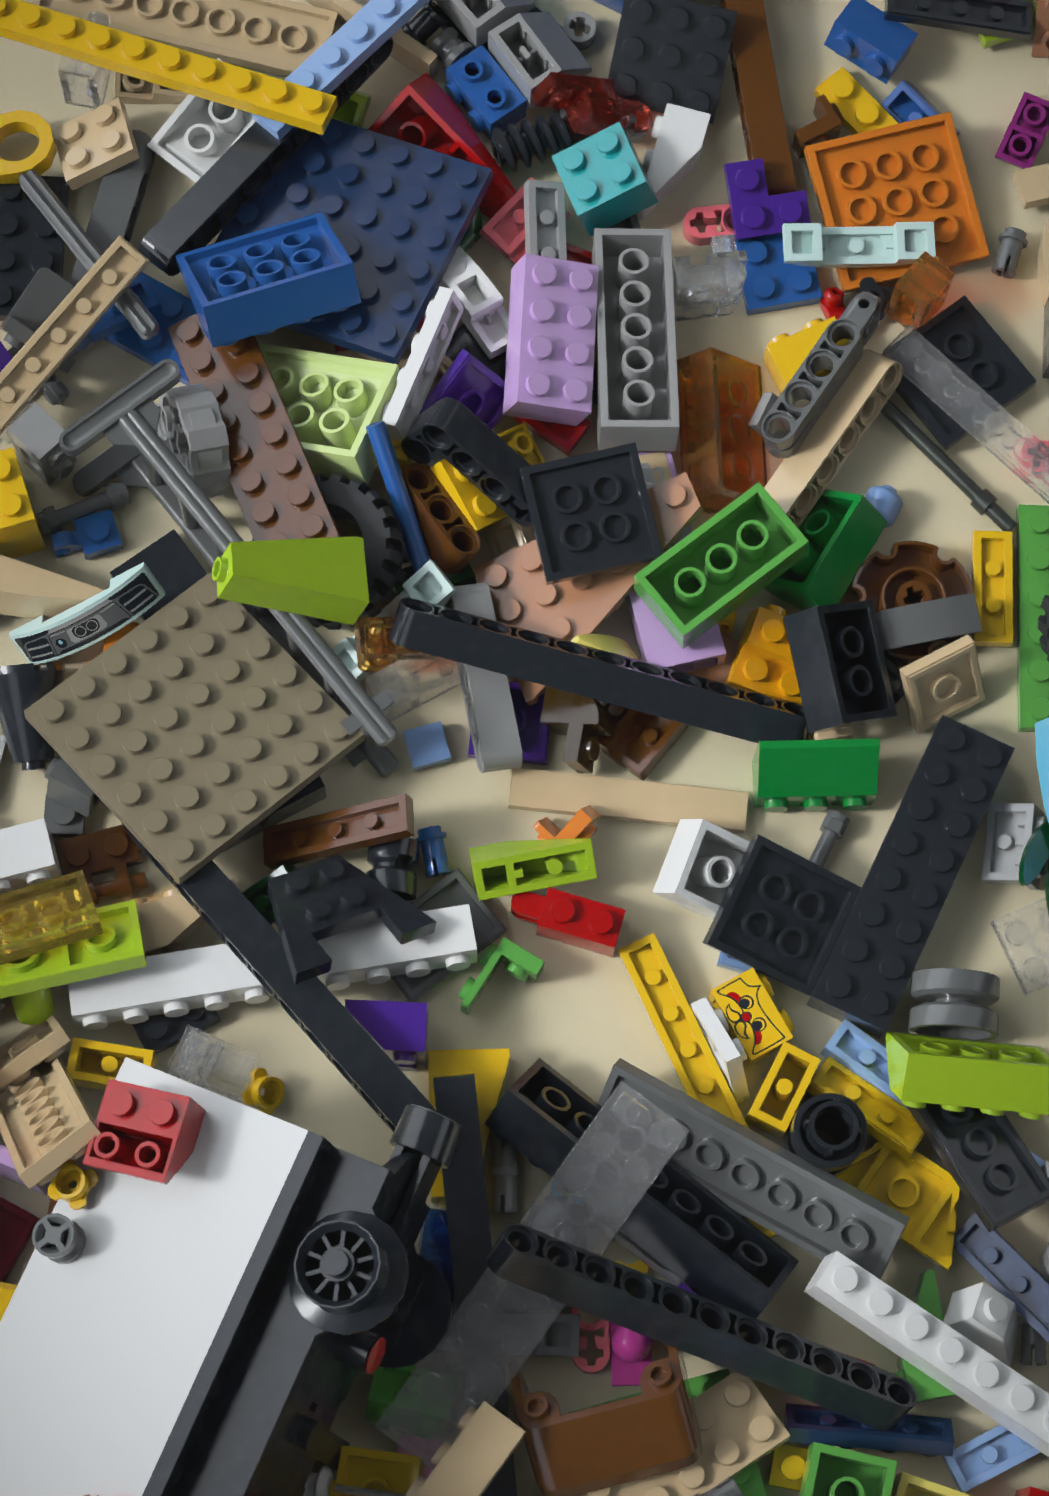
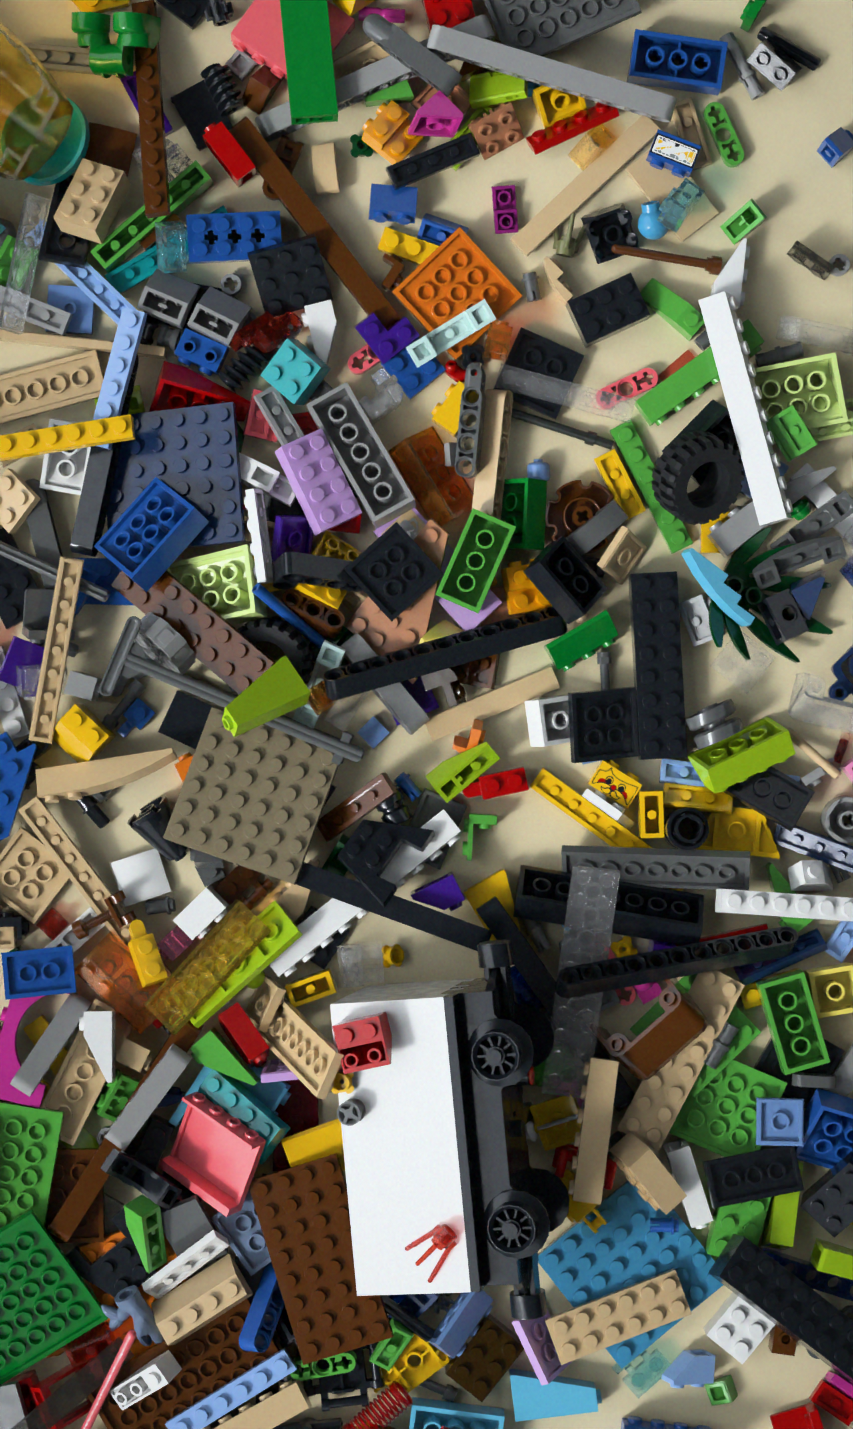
camera: 25 degrees left, 15 degrees up
(90, 620) = (167, 768): slope -> none

